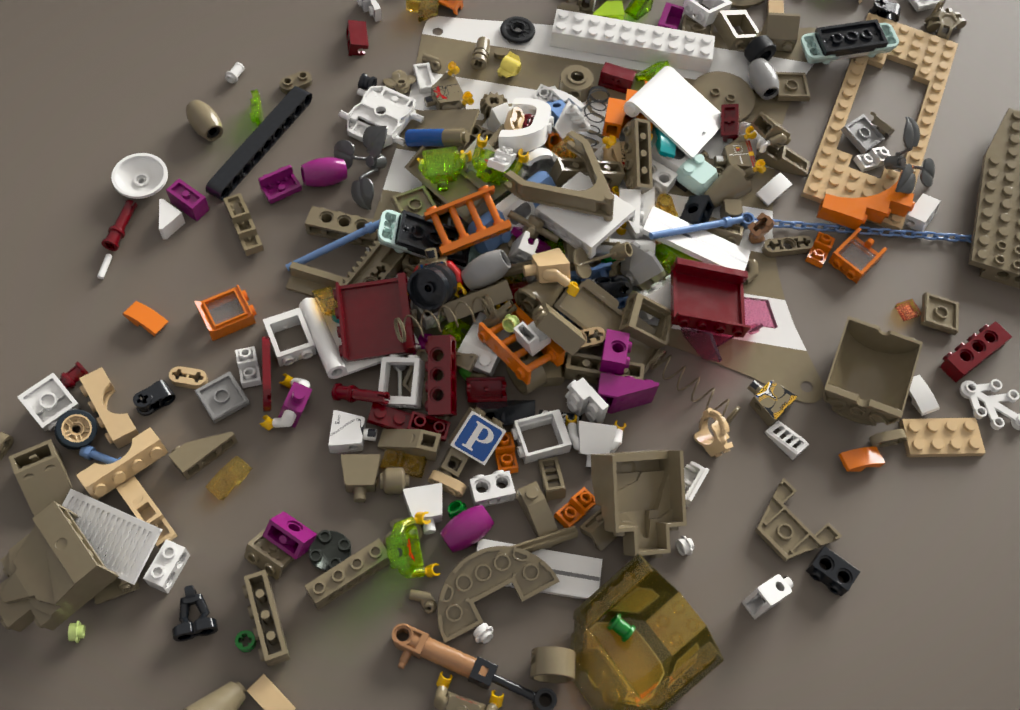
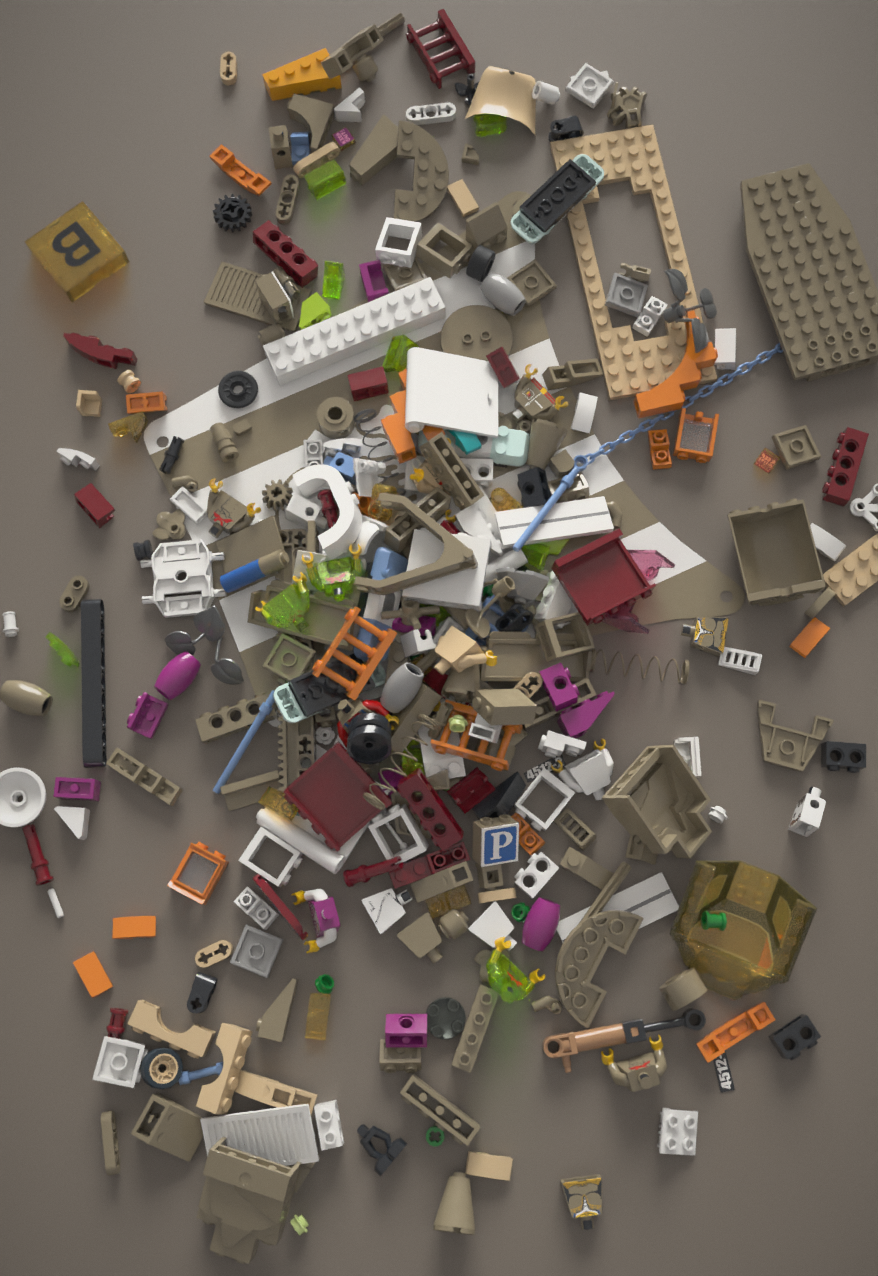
camera: 25 degrees left, 15 degrees up
(86, 331) = (93, 974): none -> orange slope
(254, 456) = (324, 984): none -> green plate
(437, 40) = (171, 455): none -> black pin
(483, 633) = (612, 999): white plate -> none
(502, 159) = (342, 570): white slope -> none
(509, 65) = (262, 440): light yellow piece -> none
(514, 119) = (316, 510): tan beam -> none
(576, 508) = (612, 842): orange slope -> none
(715, 444) = (685, 704): tan piece -> none
(760, 228) = (599, 471): medium nougat animal -> none
(769, 130) = (544, 353): dark tan torso -> none
(782, 251) = (633, 458): dark tan beam -> none

